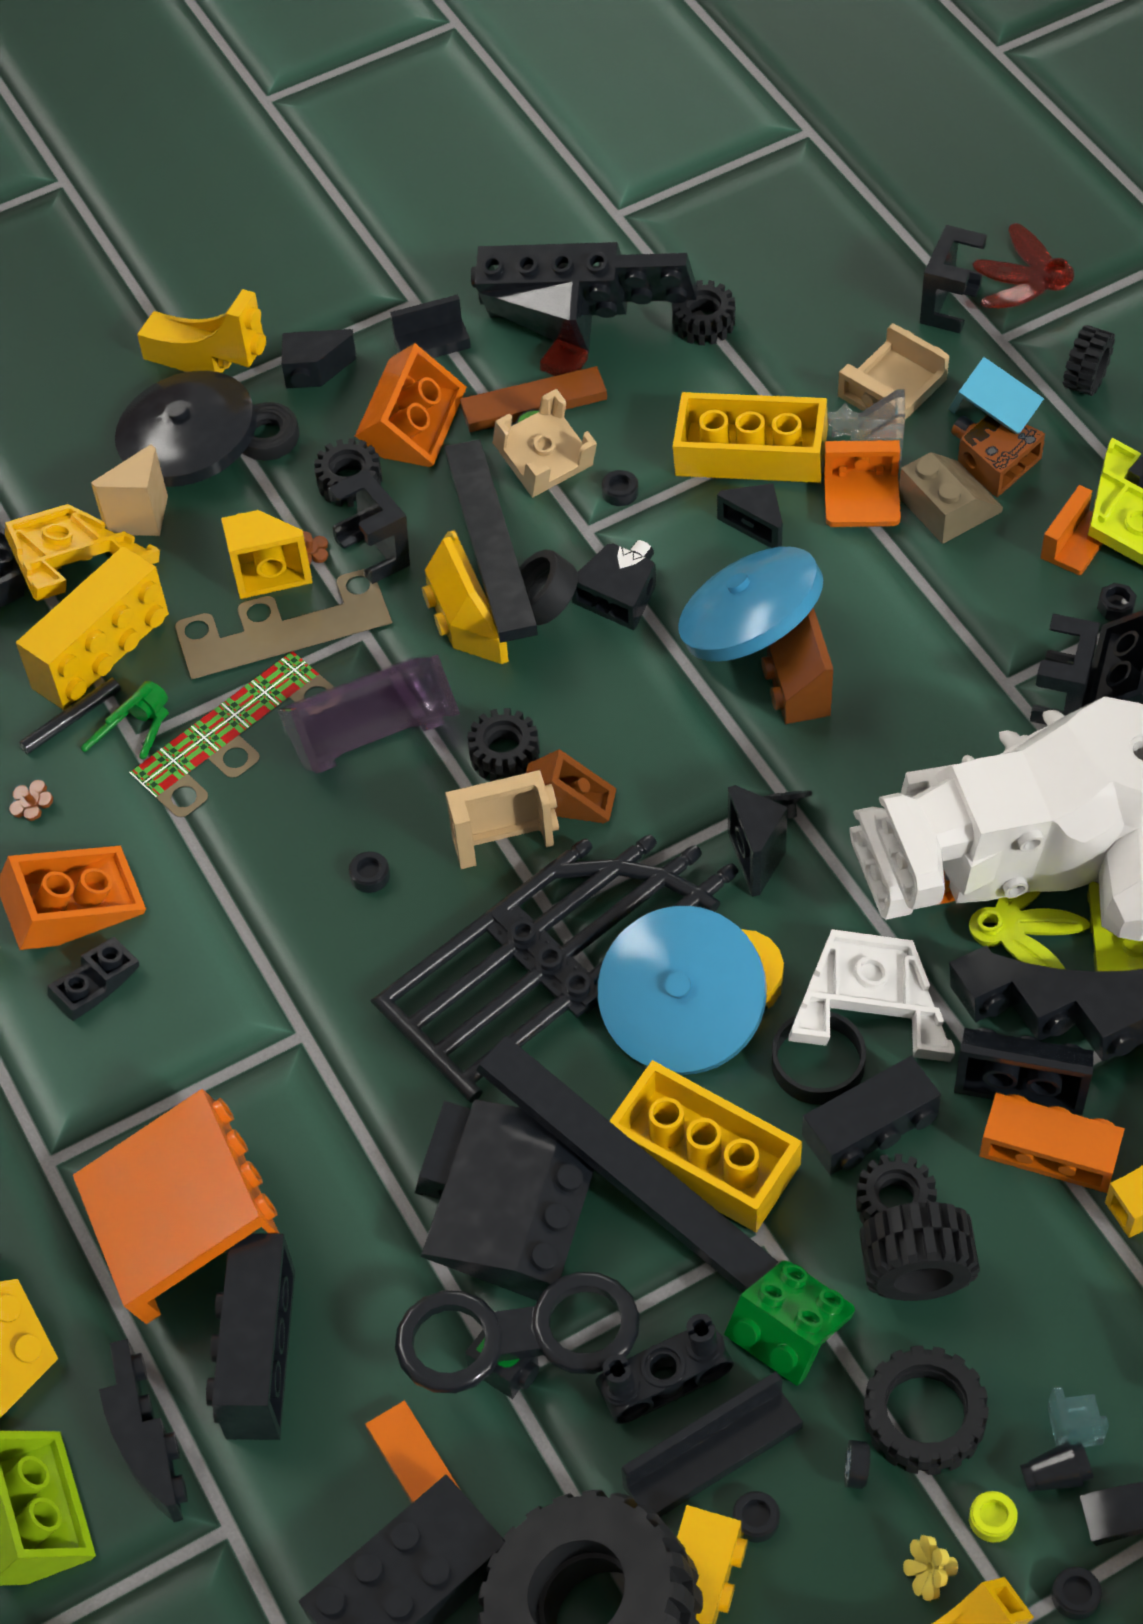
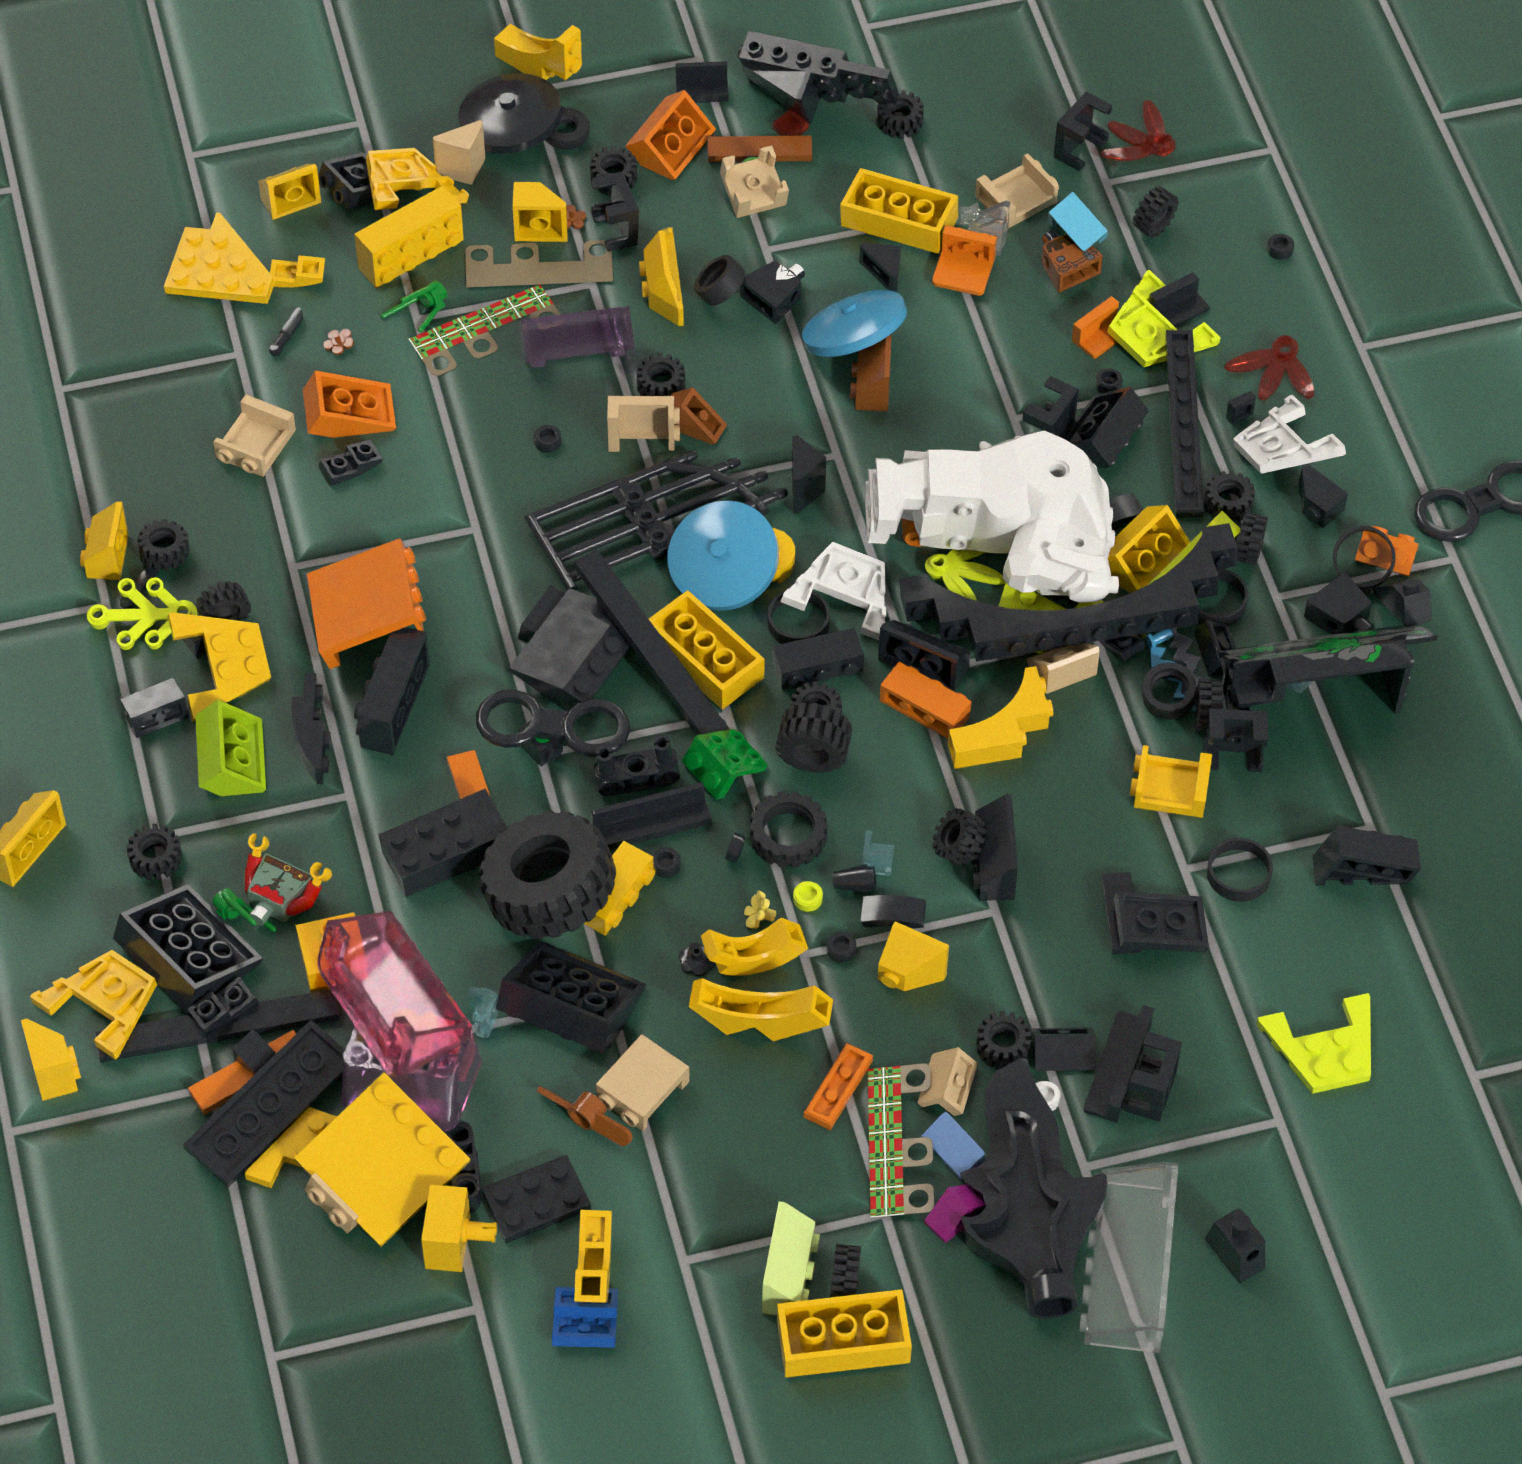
camera: 10 degrees right, 0 degrees up
(69, 716) = (379, 292): black bar -> none
(316, 356) = (615, 82): black slope -> none
(491, 542) = (694, 239): black tile -> none
(620, 488) = (798, 225): black tile -> none
(789, 800) = (836, 458): black plant -> none
(945, 496) = (1021, 282): dark tan slope -> none

